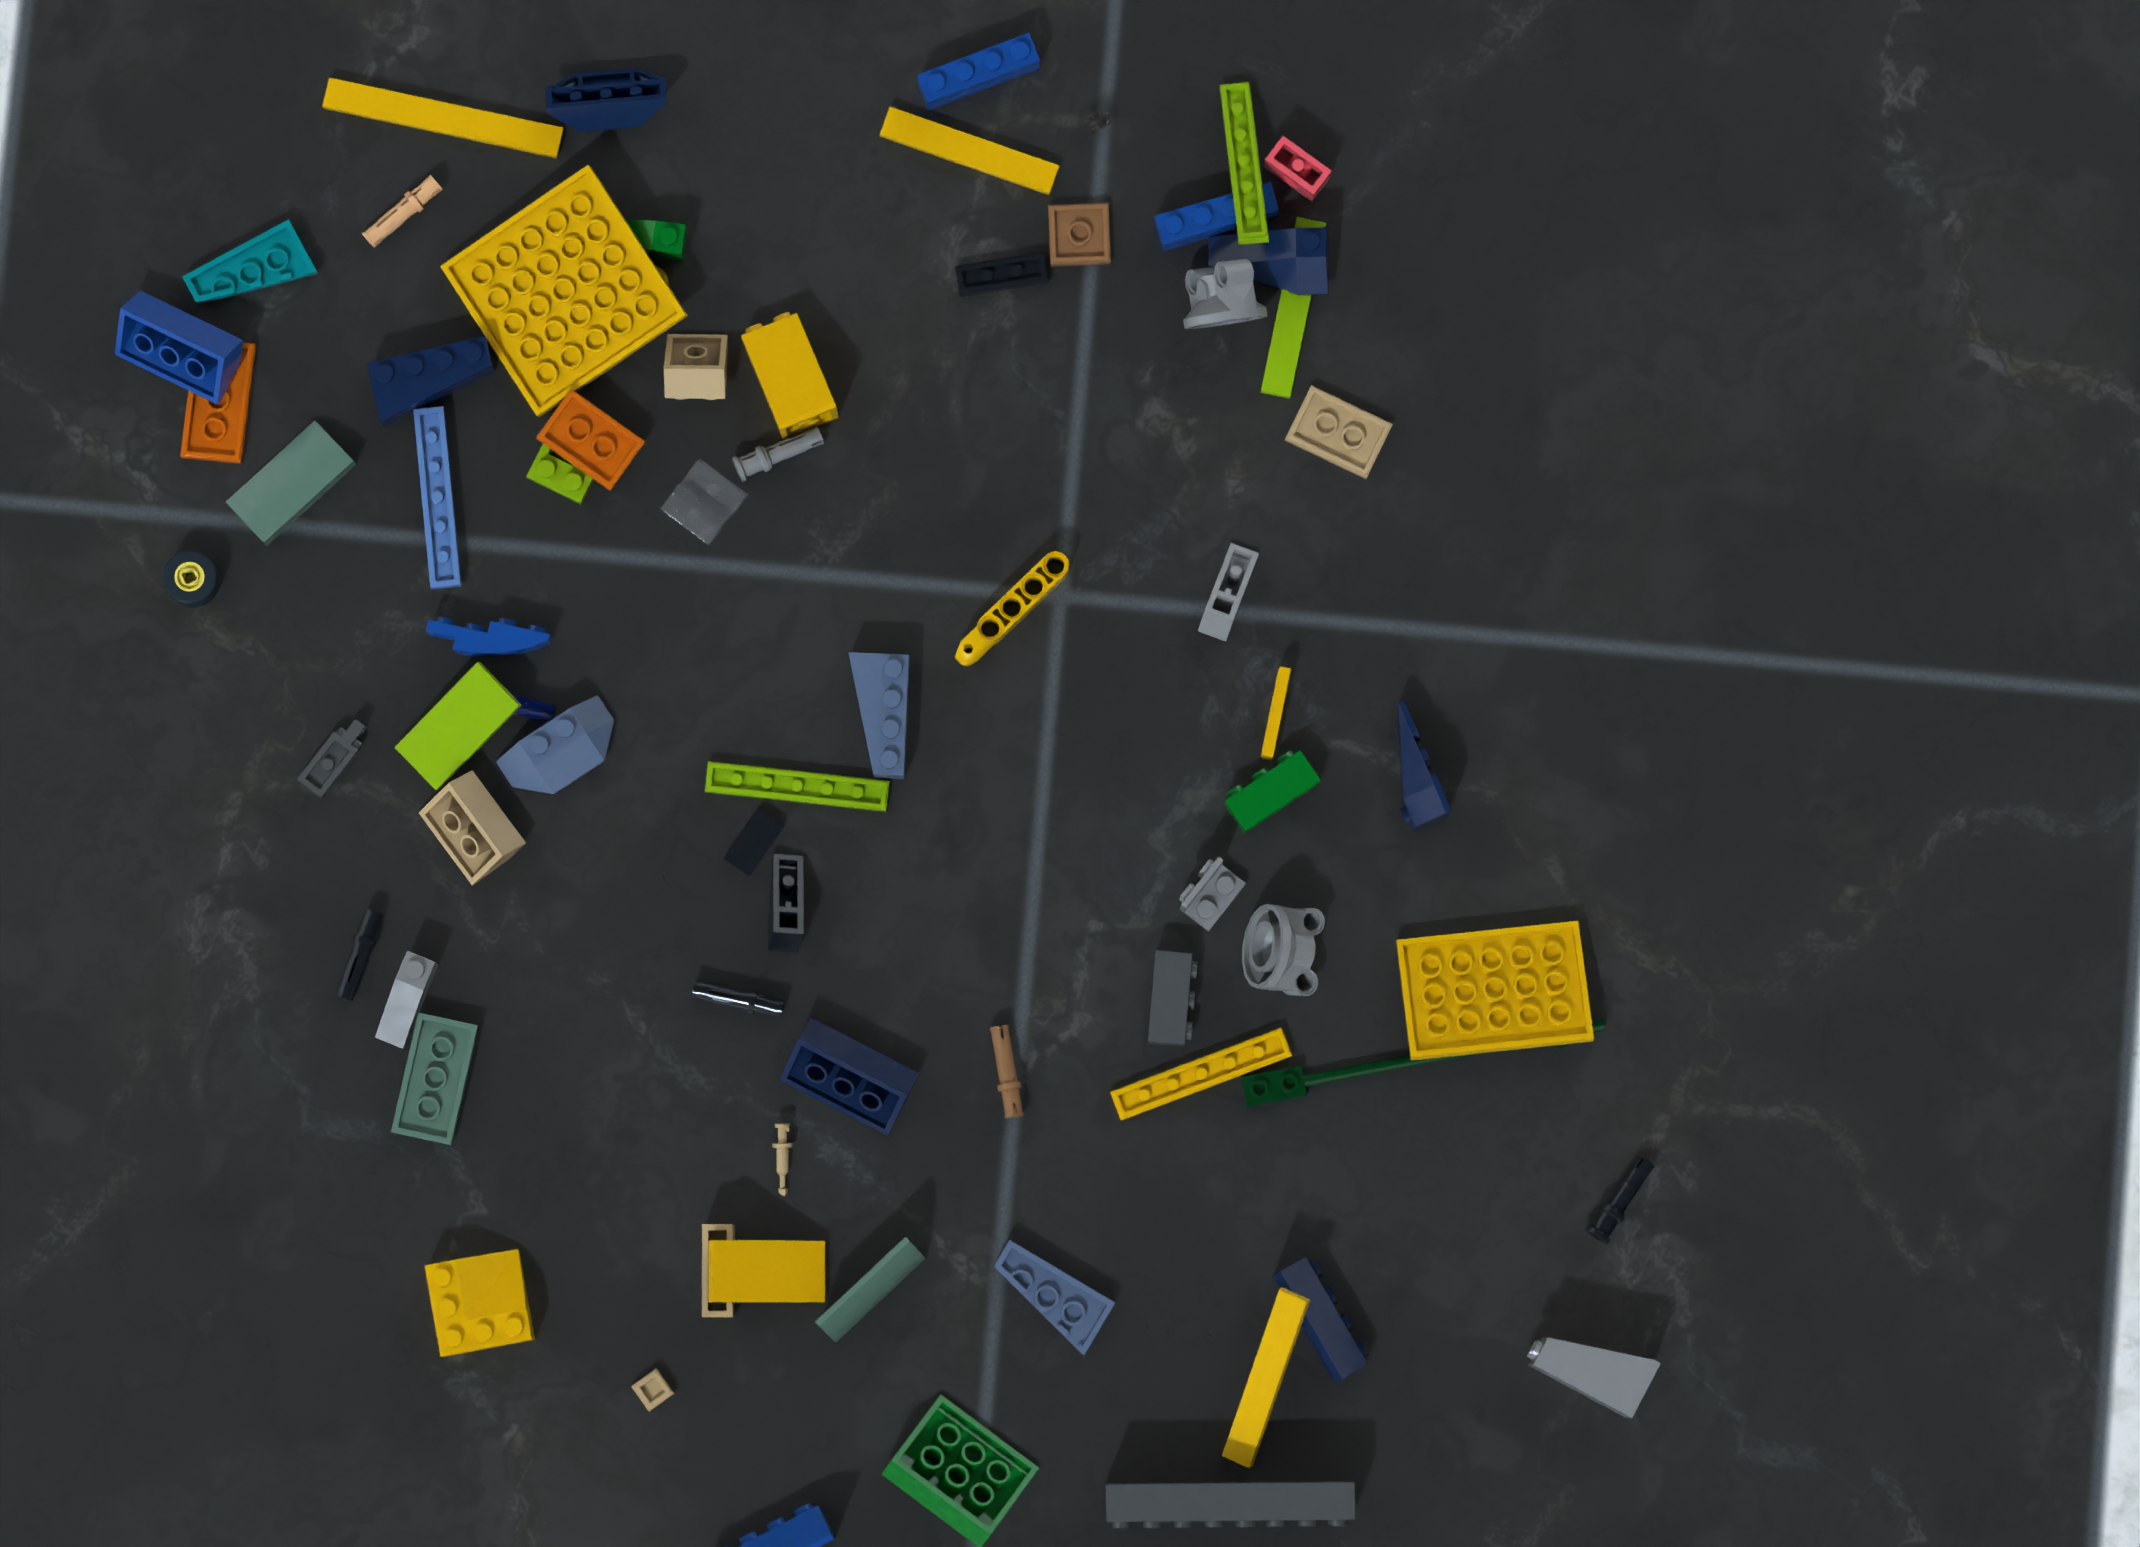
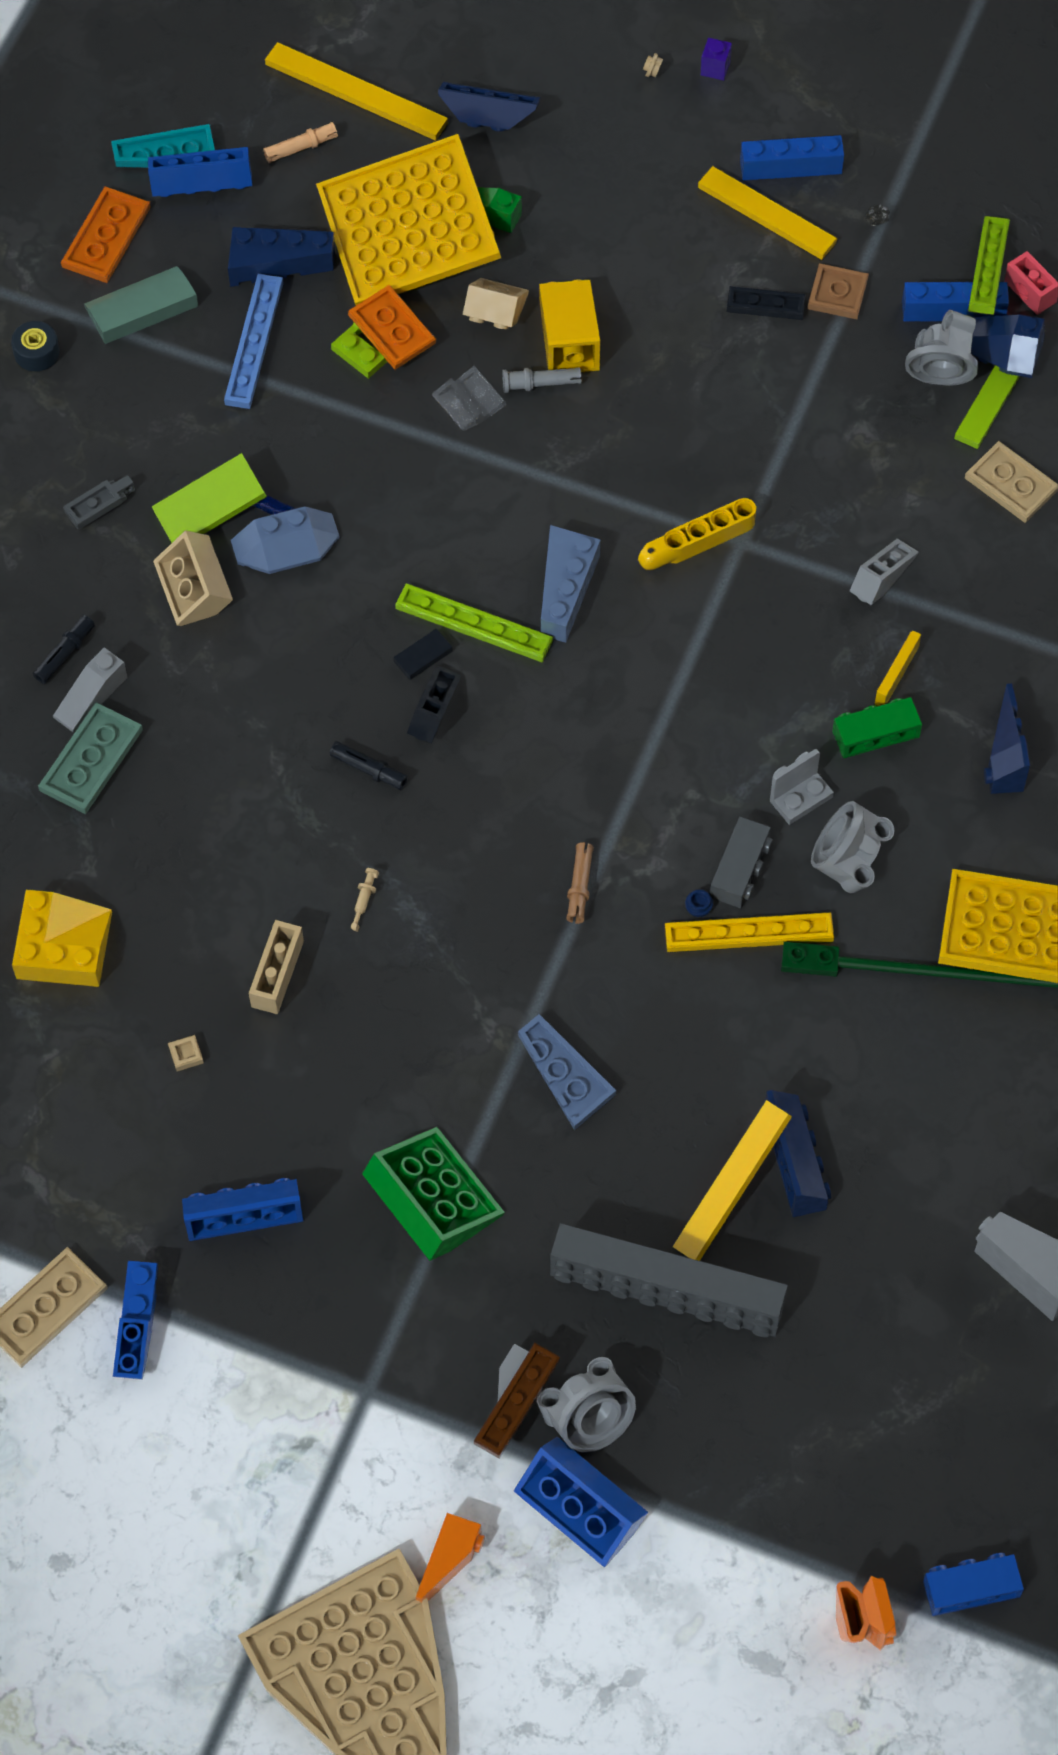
camera: 20 degrees right, 20 degrees down
(177, 346) = (88, 183): blue slope -> none
(301, 292) = (200, 171): none -> blue brick
(500, 641) = (265, 452): blue slope -> none
(766, 1271) = (318, 975): yellow tile -> none
(849, 1076) = (442, 849): dark blue slope -> none
(870, 1290) = (403, 1016): sand green slope -> none
(1139, 1057) = (699, 903): none -> dark blue plate

